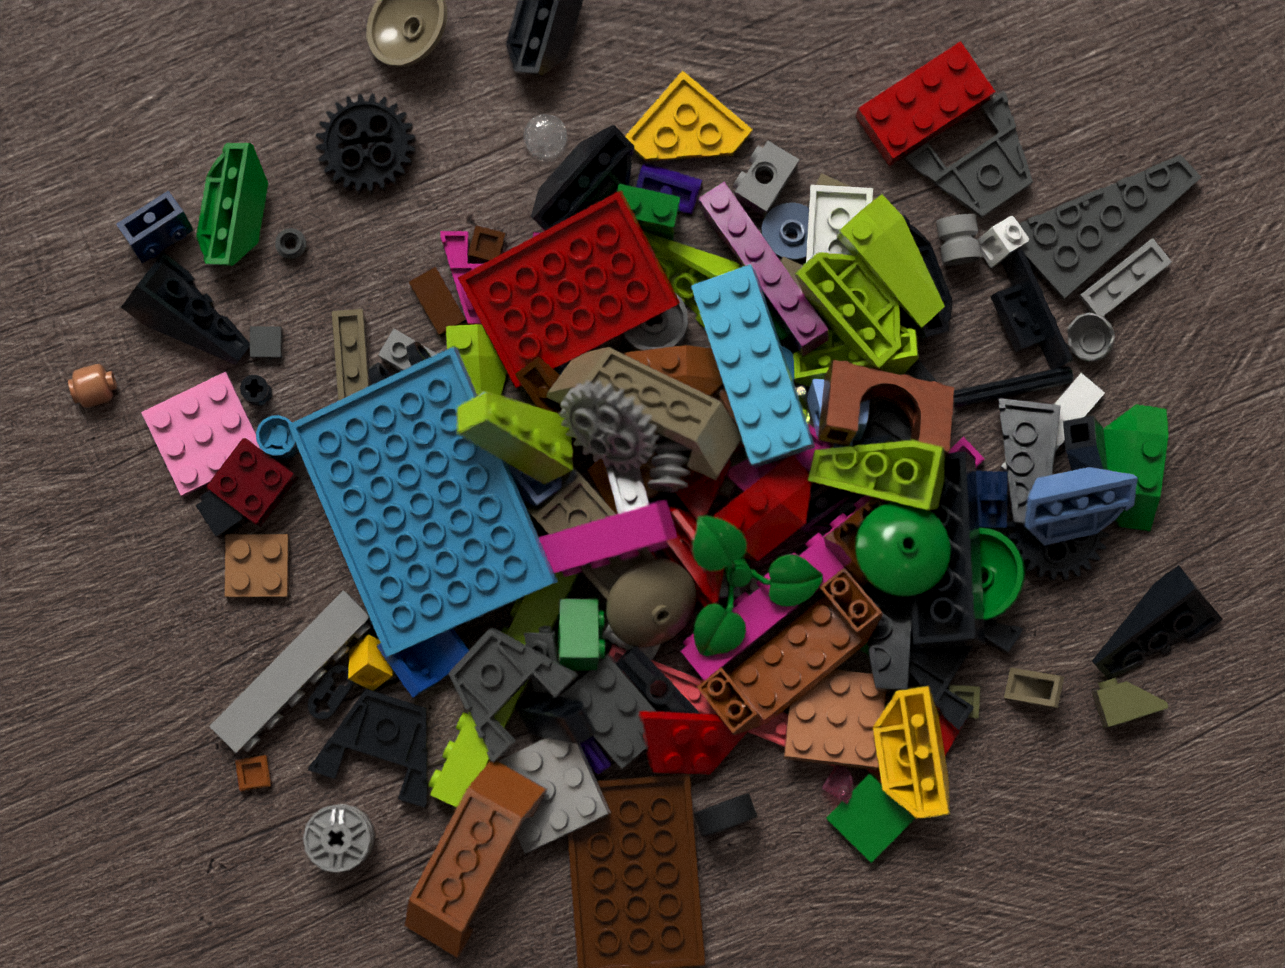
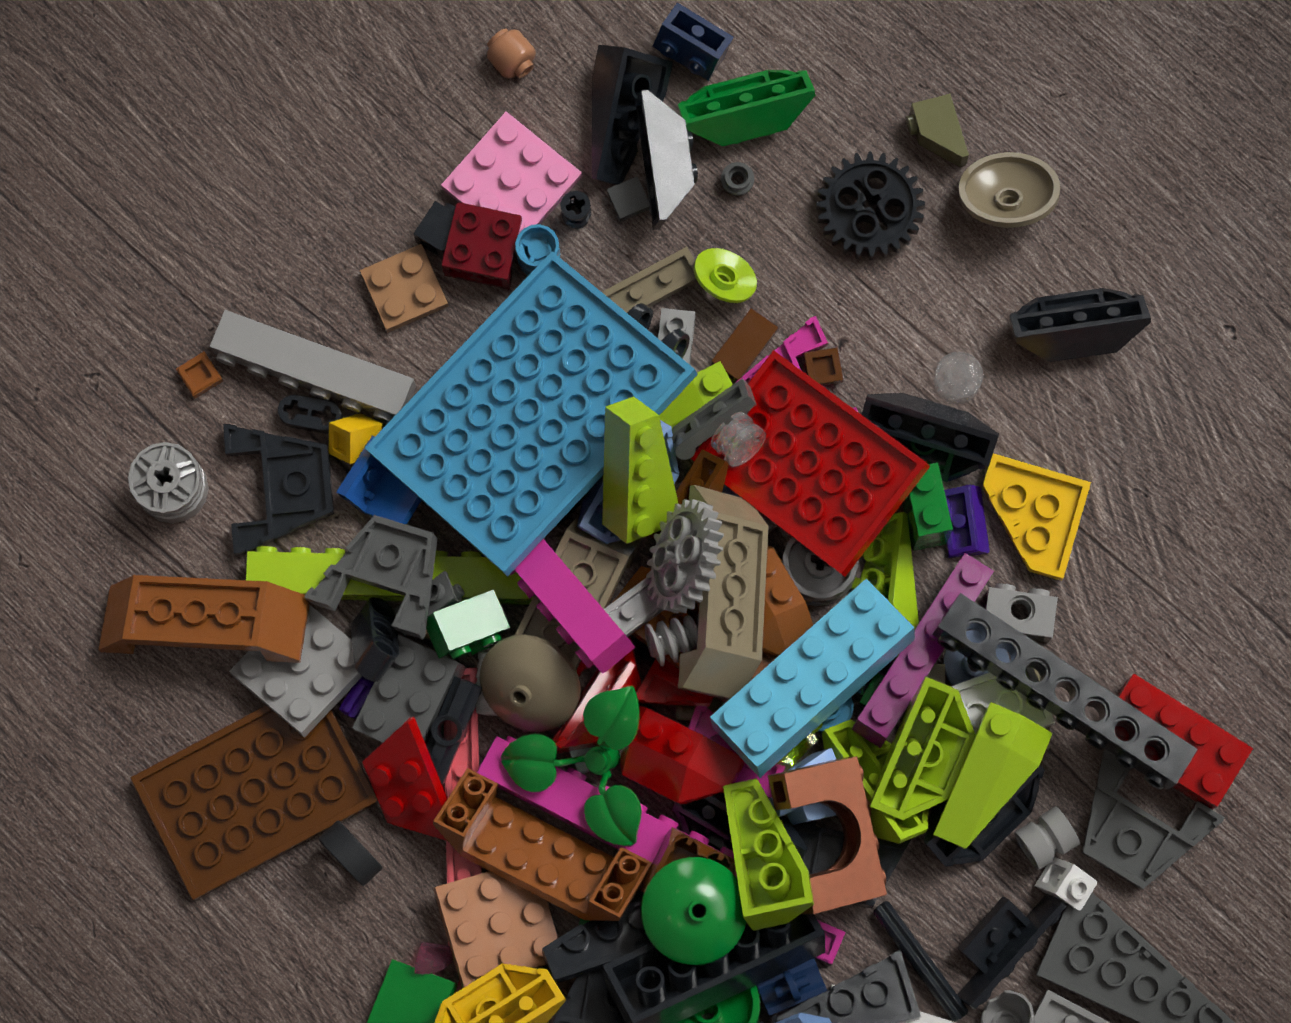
camera: 70 degrees right, 5 degrees down
(248, 293) = (665, 156): none -> wedge
(325, 57) = (938, 128): none -> olive slope
(371, 290) = (725, 275): none -> lime dish
(493, 353) = (707, 419): none -> dark grey plate
(523, 339) = (738, 439): none -> clear wheel
(941, 105) = (1172, 751): none -> black brick

